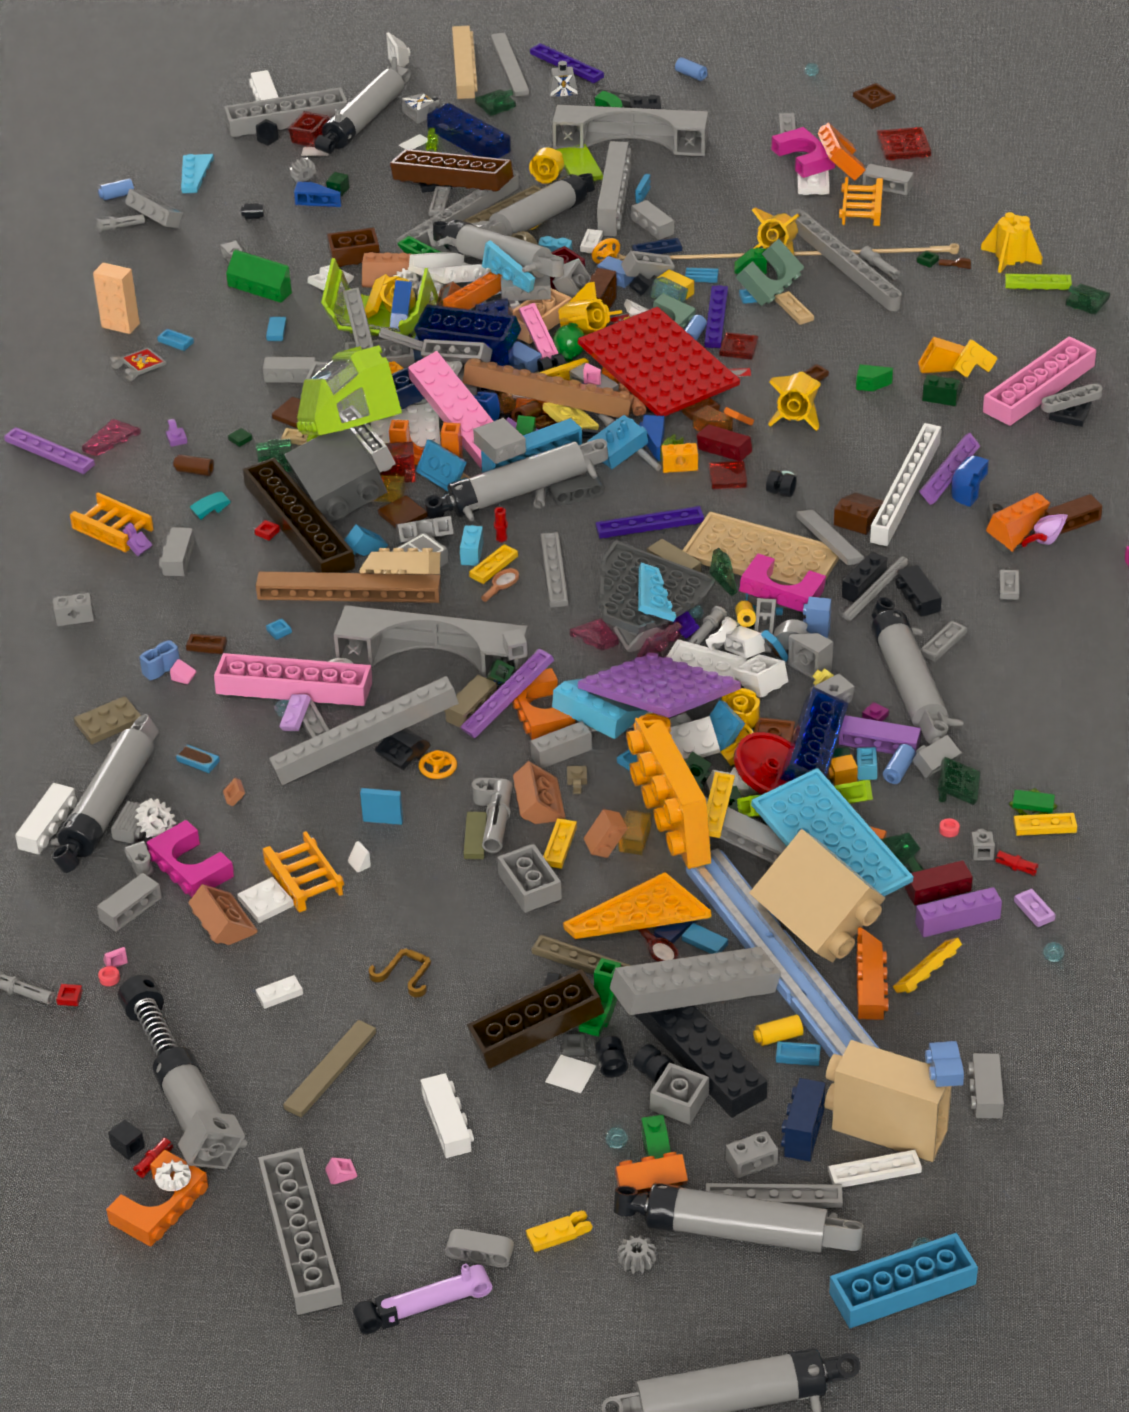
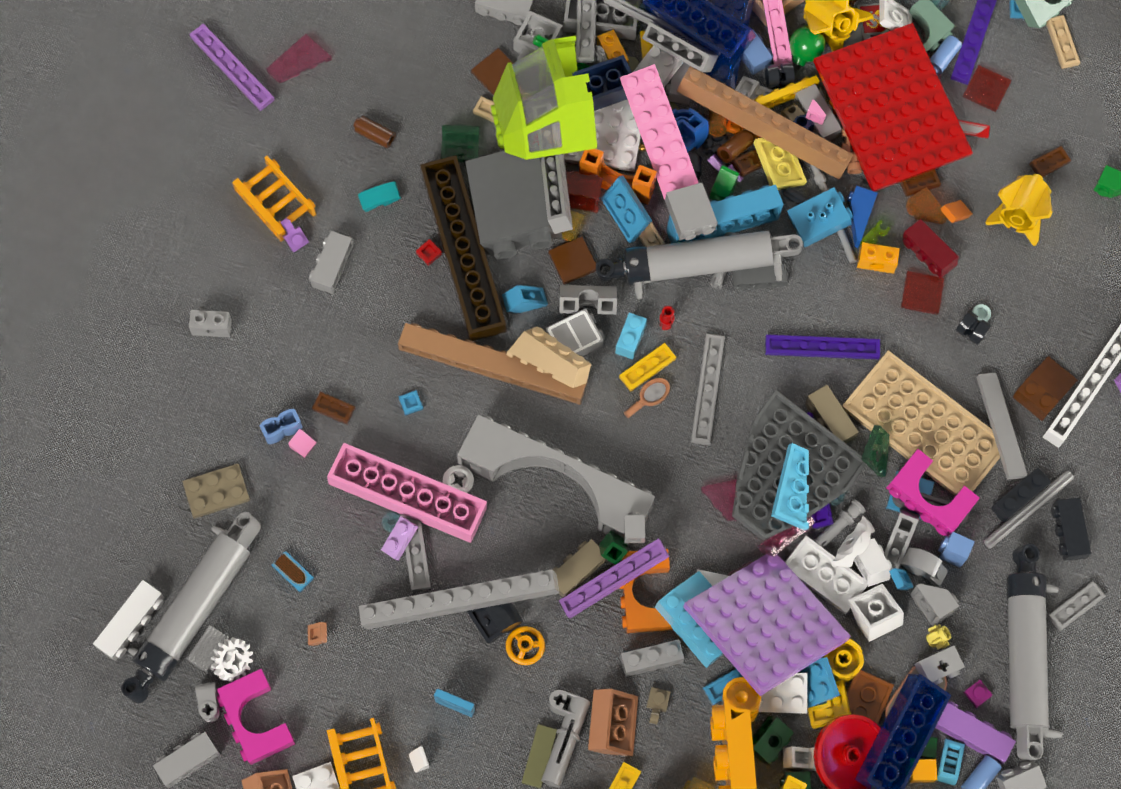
camera: 10 degrees right, 30 degrees up
(174, 435) = (366, 76): medium lavender plate -> none
(240, 437) = (431, 96): dark green tile -> none
(745, 613) = (883, 521): yellow brick -> none

